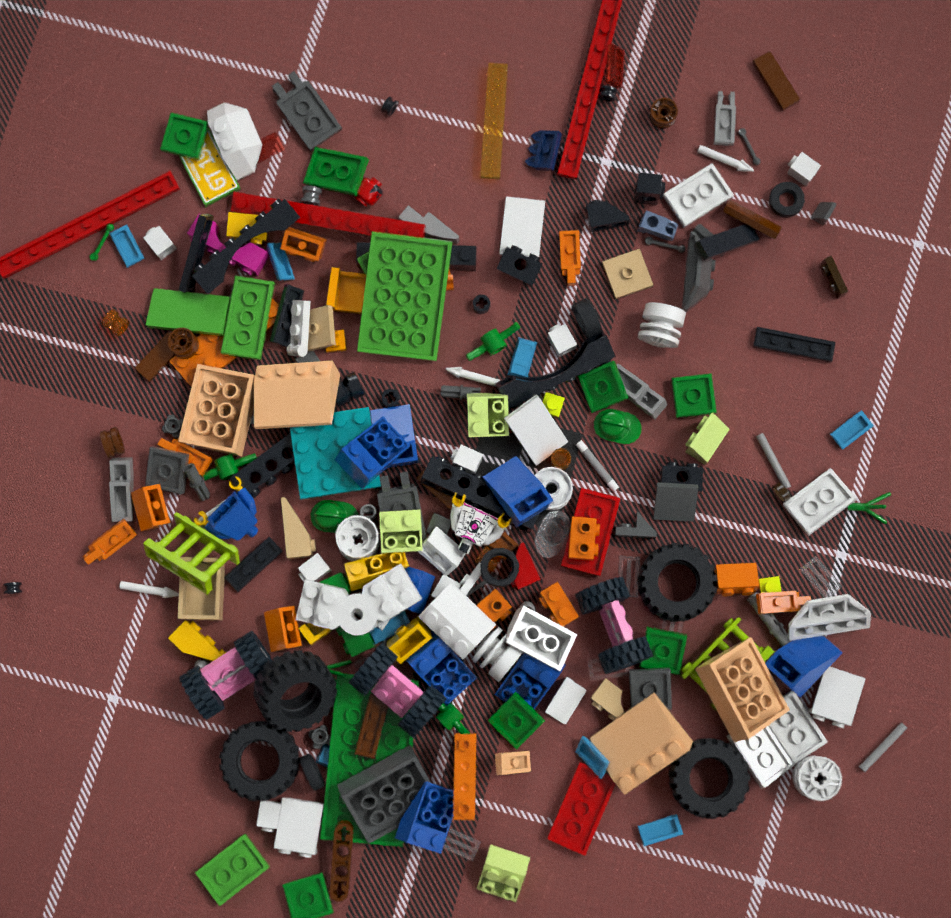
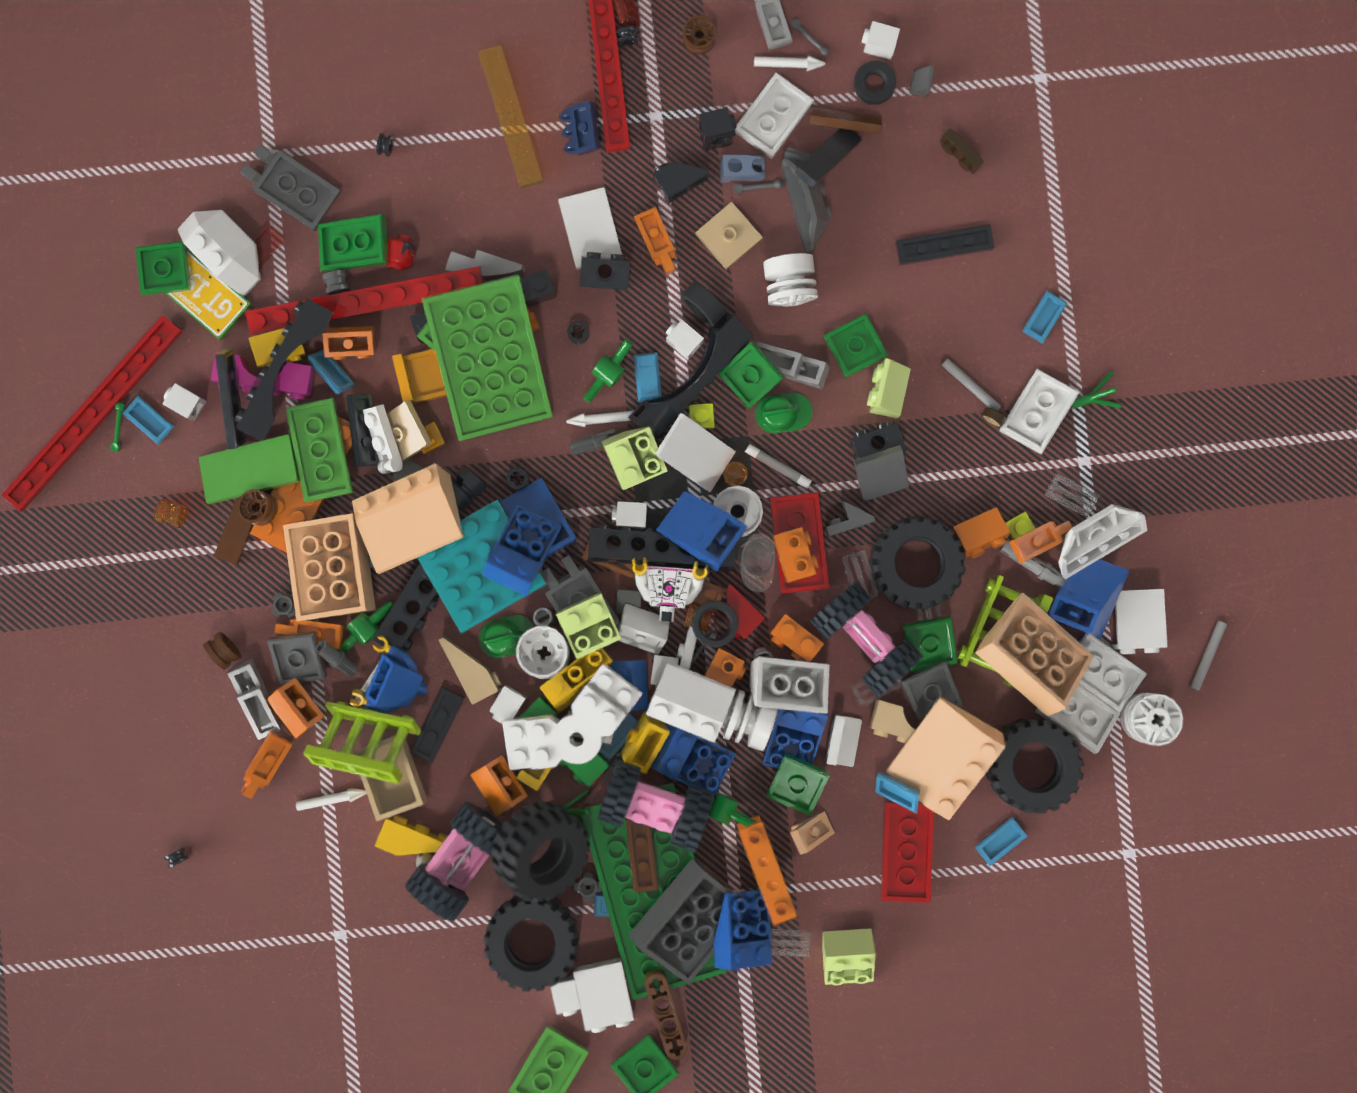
camera: 30 degrees left, 5 degrees up
(312, 772) = (594, 930): black tyre -> none

